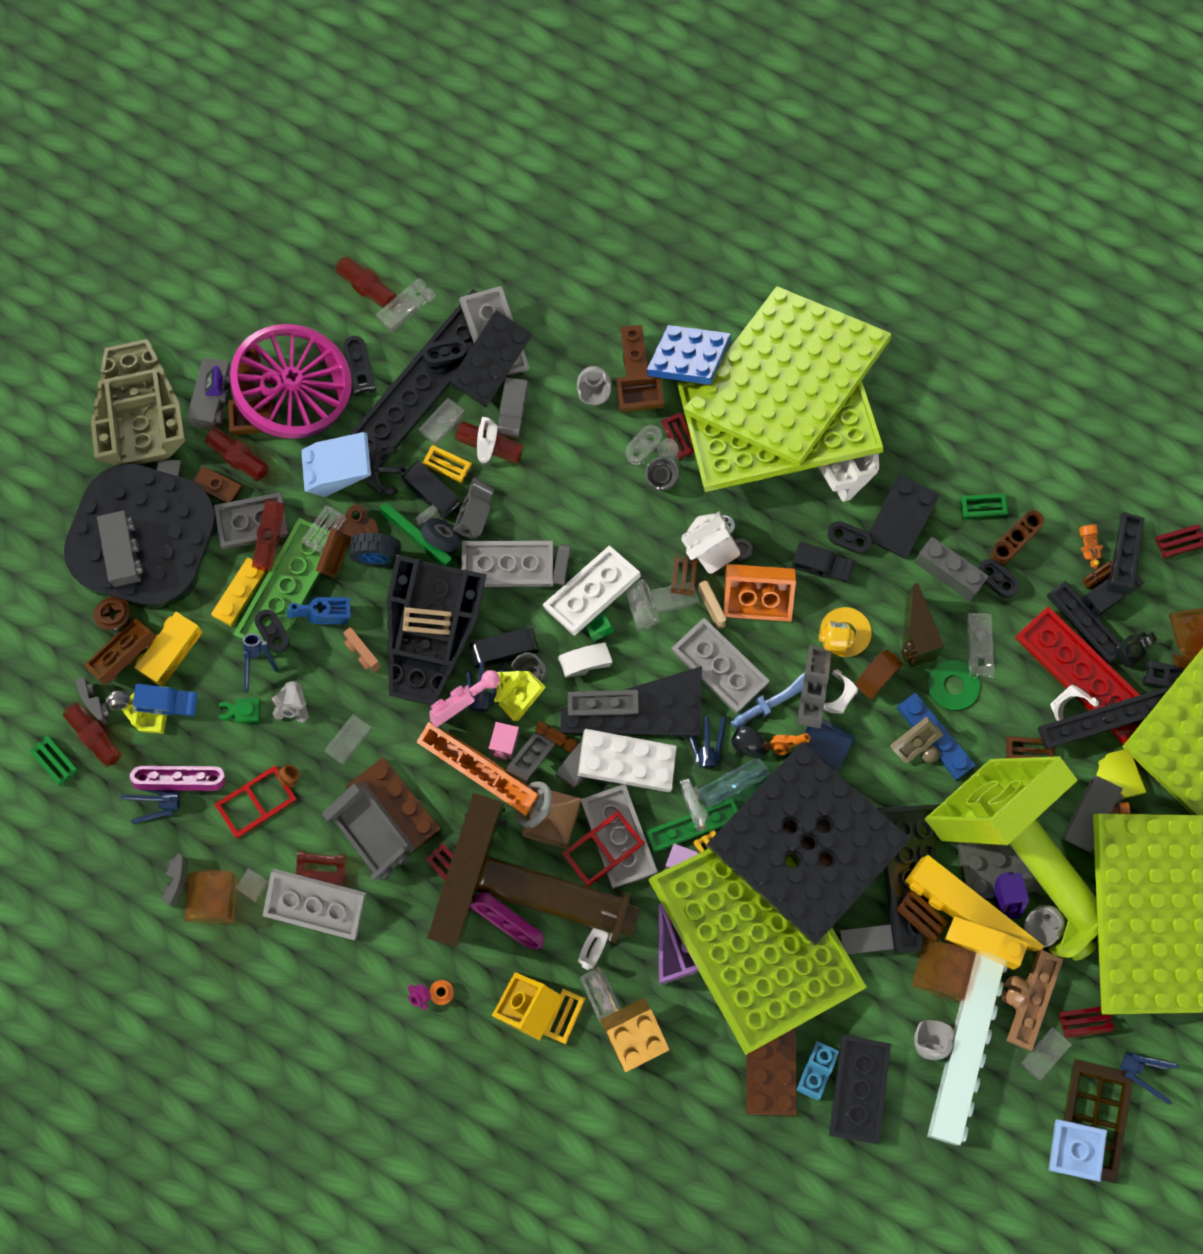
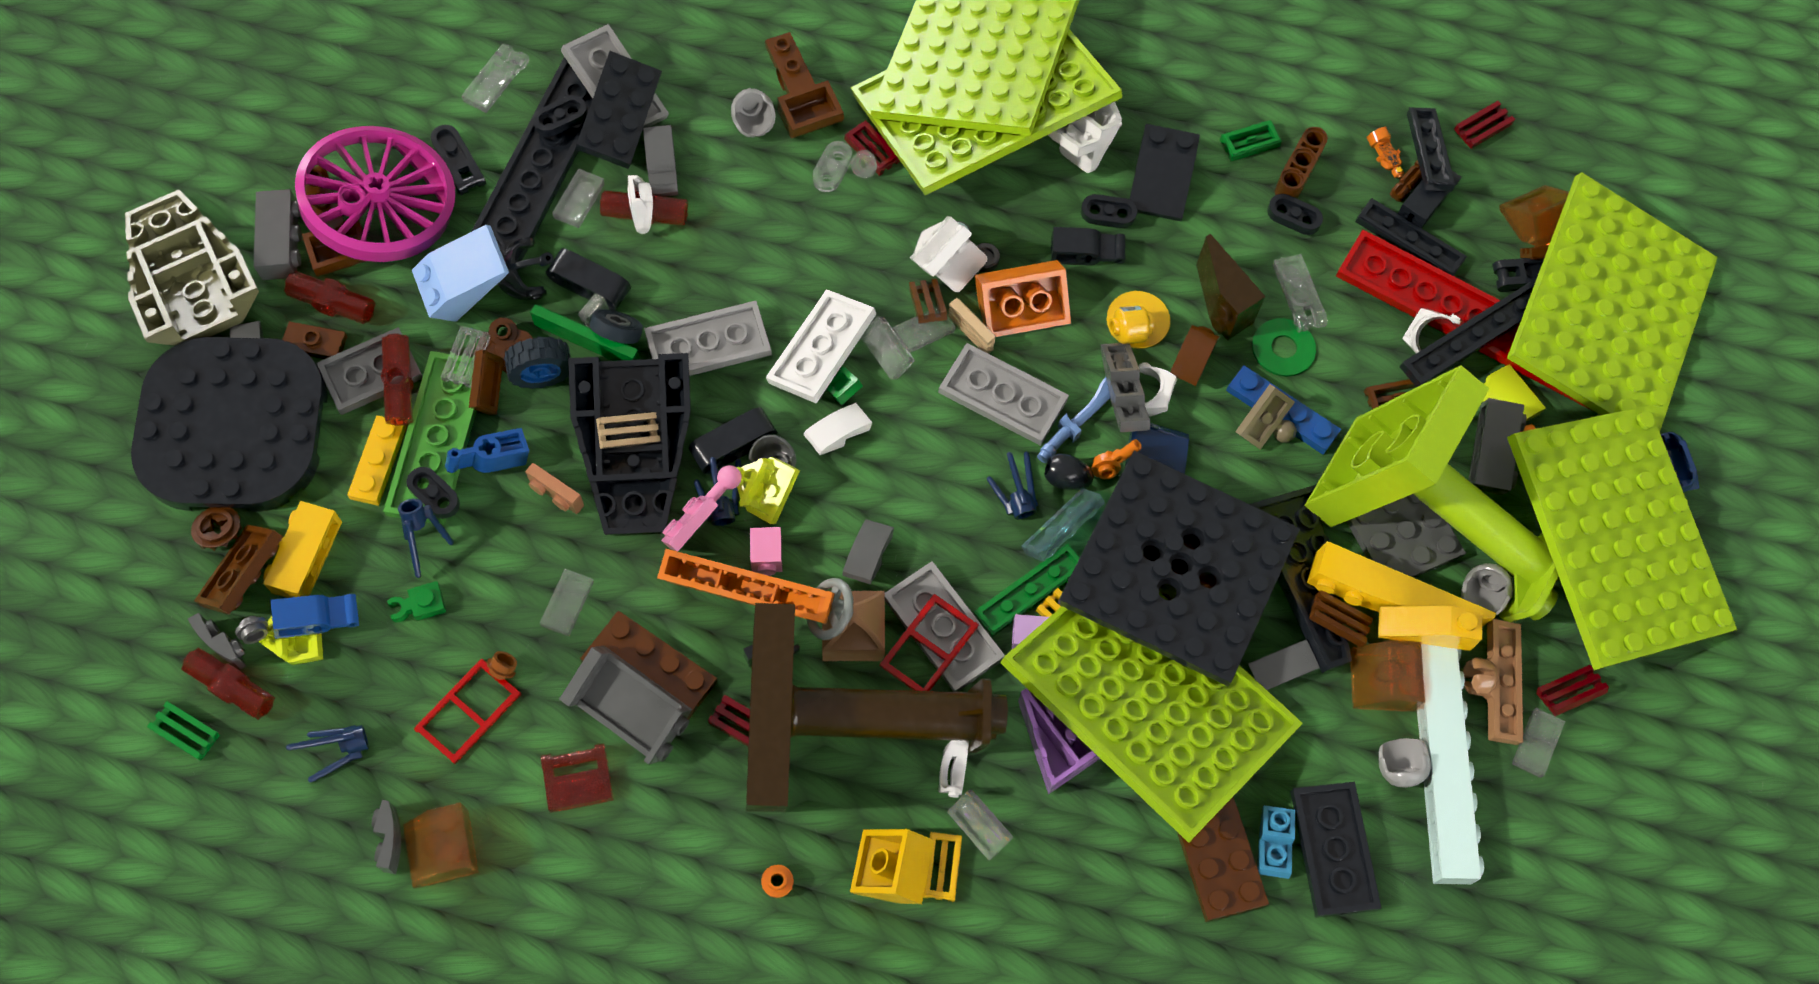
camera: 20 degrees left, 5 degrees down
(120, 548) = (206, 440): dark grey brick -> none
(178, 778) = (356, 707): magenta plate -> none
(214, 382) = (278, 215): dark purple slope -> none
(252, 885) = (491, 816): clear tile -> none
(290, 703) = (481, 575): light grey rock -> none
(314, 904) = (580, 815): light grey plate -> none
(365, 282) = (437, 62): clear red piece -> none
(419, 996) = (750, 893): magenta plate -> none
(463, 472) = (598, 251): yellow tile -> none
(474, 510) = (648, 289): dark grey piece -> none
(507, 921) = (838, 763): magenta plate -> none
(530, 757) = (806, 558): dark grey plate -> none
(556, 736) = (828, 529): reddish brown axle -> none
(561, 565) = (775, 325): dark grey beam -> none
(603, 703) = (876, 470): dark grey plate -> none
(627, 760) = (926, 532): white plate -> none
(634, 1034) = (1040, 860): brick -> none
(662, 473) = (865, 192): dark grey hair -> none
(665, 709) = (938, 464): black wing -> none
(689, 354) = (856, 51): plate -> none
(691, 797) = (1019, 557): clear plate -> none
(951, 569) = (1238, 216): dark grey brick -> none
(1011, 894) = (1437, 562): dark purple slope -> none
(1077, 1150) = (1619, 844): light blue plate -> none
(1110, 1075) = (1634, 864): dark brown piece -> none
(1132, 647) = (1473, 251): black plate -> none
(1134, 1063) = (1648, 722): dark blue plant -> none

